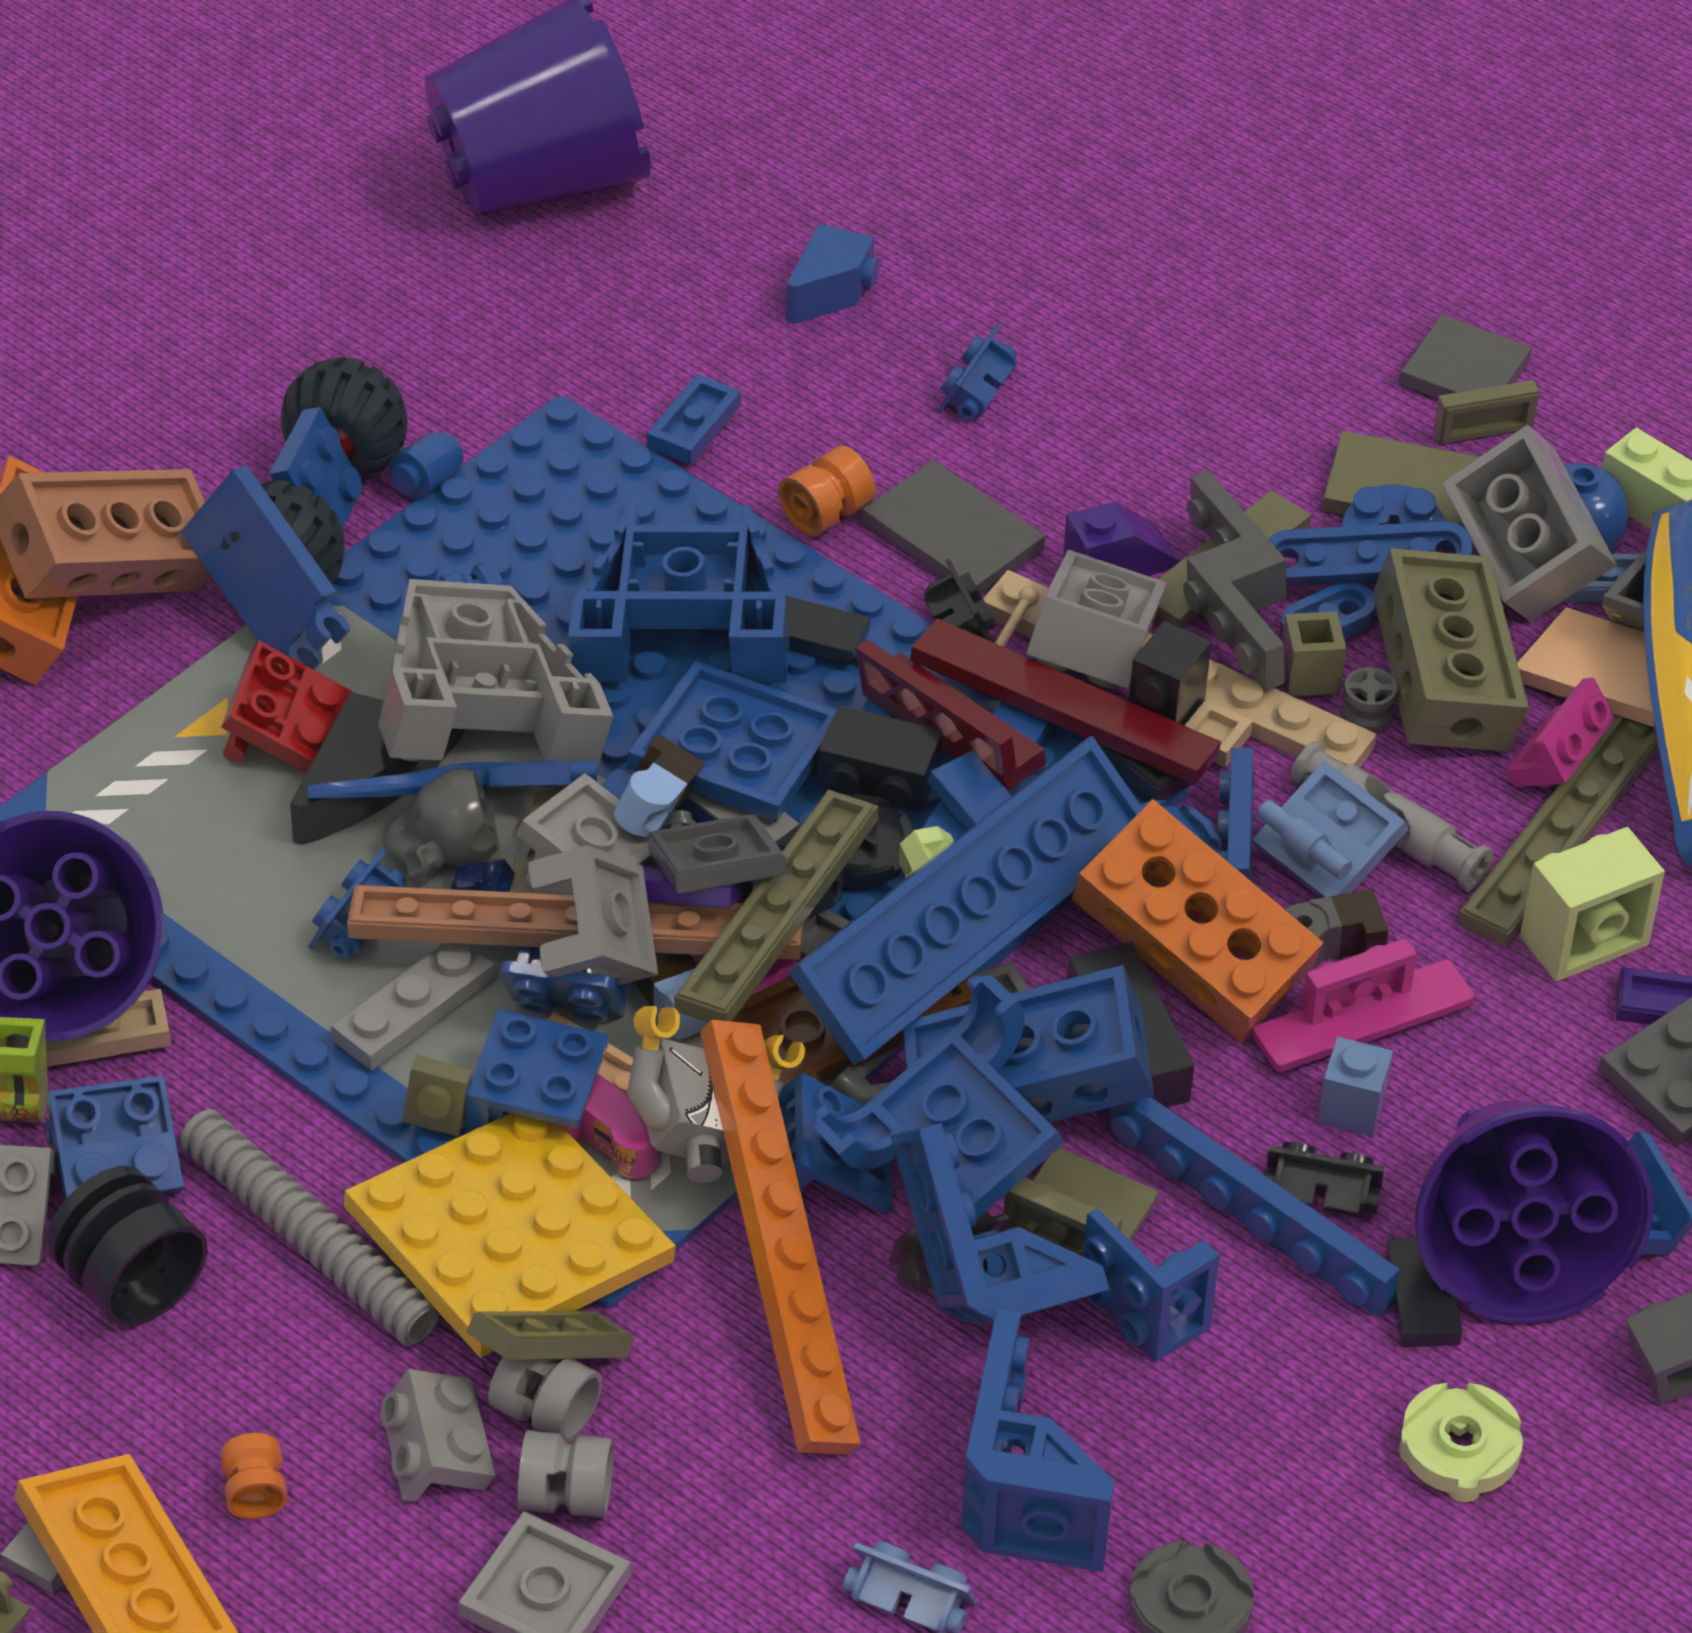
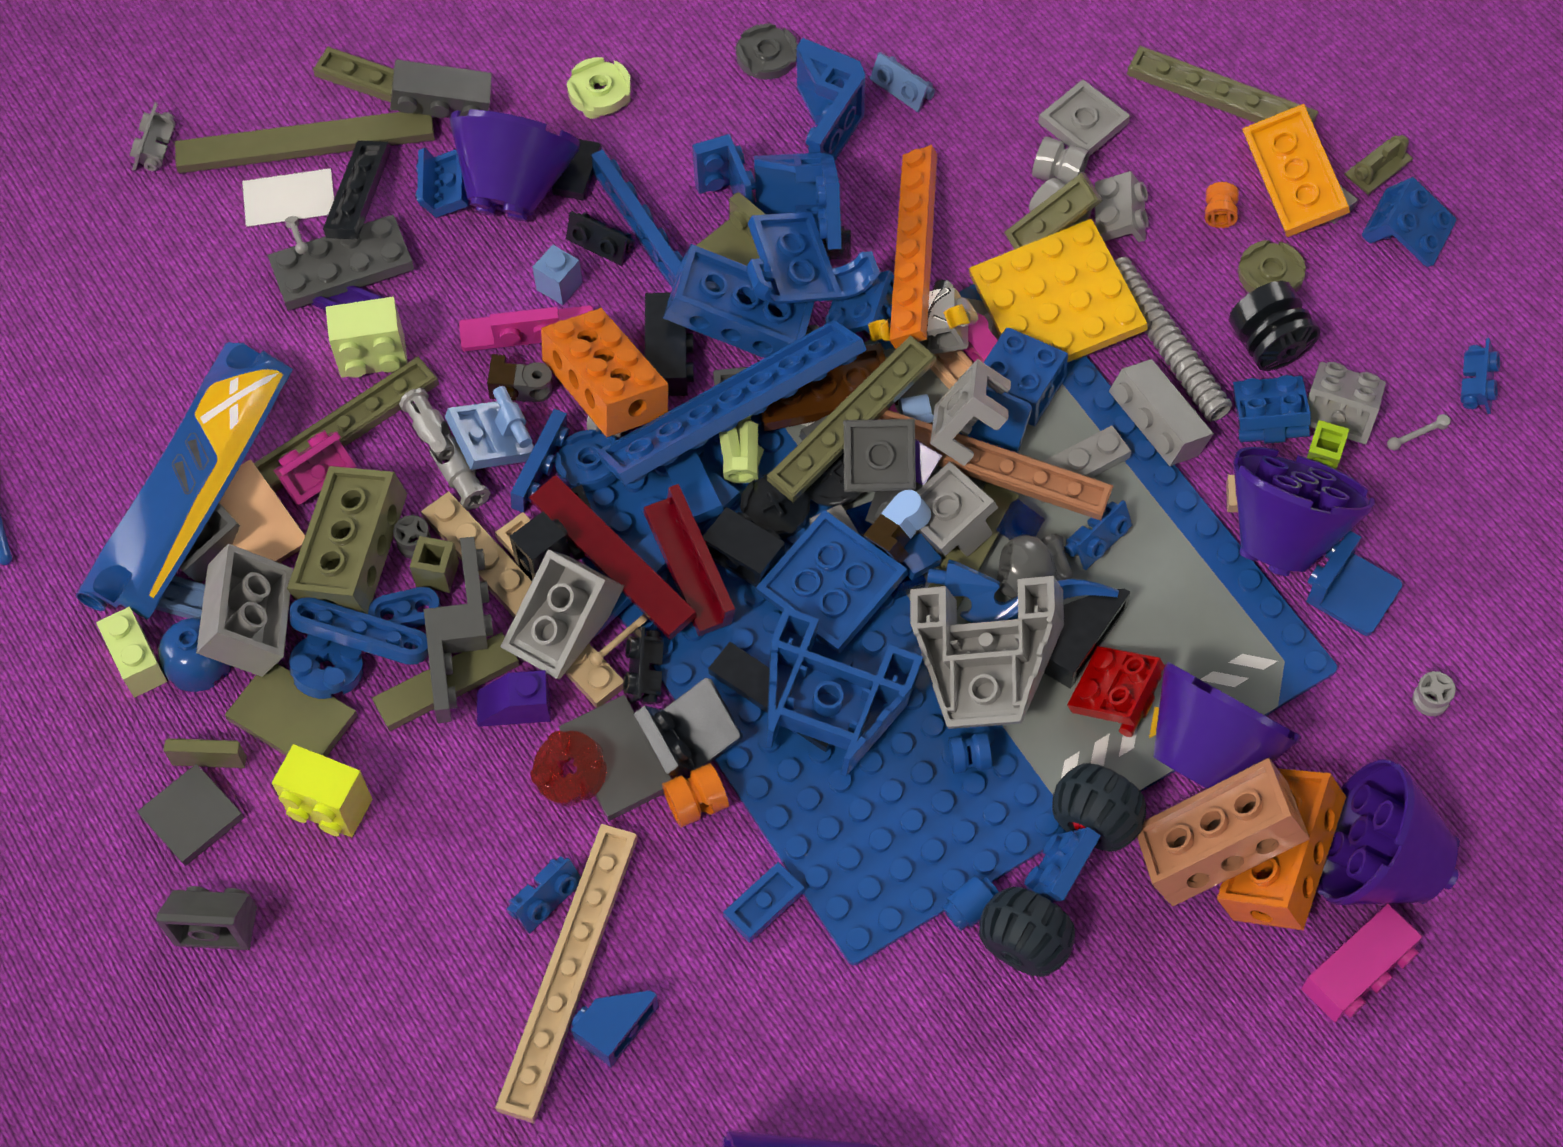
camera: 160 degrees left, 15 degrees up
(87, 677) = (1210, 732): none -> dark purple cone
(144, 1401) = (1270, 262): none -> olive tile
(266, 570) = (1100, 750): blue tile -> none
(297, 1090) = (1160, 412): none -> light grey brick
(437, 1095) = (1081, 375): olive bracket -> none
(876, 546) = (690, 729): none -> bracket
(909, 318) = (566, 974): none -> tan plate
(1007, 488) = (549, 771): none -> clear red plate
(1305, 381) = (322, 791): none -> neon yellow brick
(1367, 249) = (208, 918): none -> dark grey slope

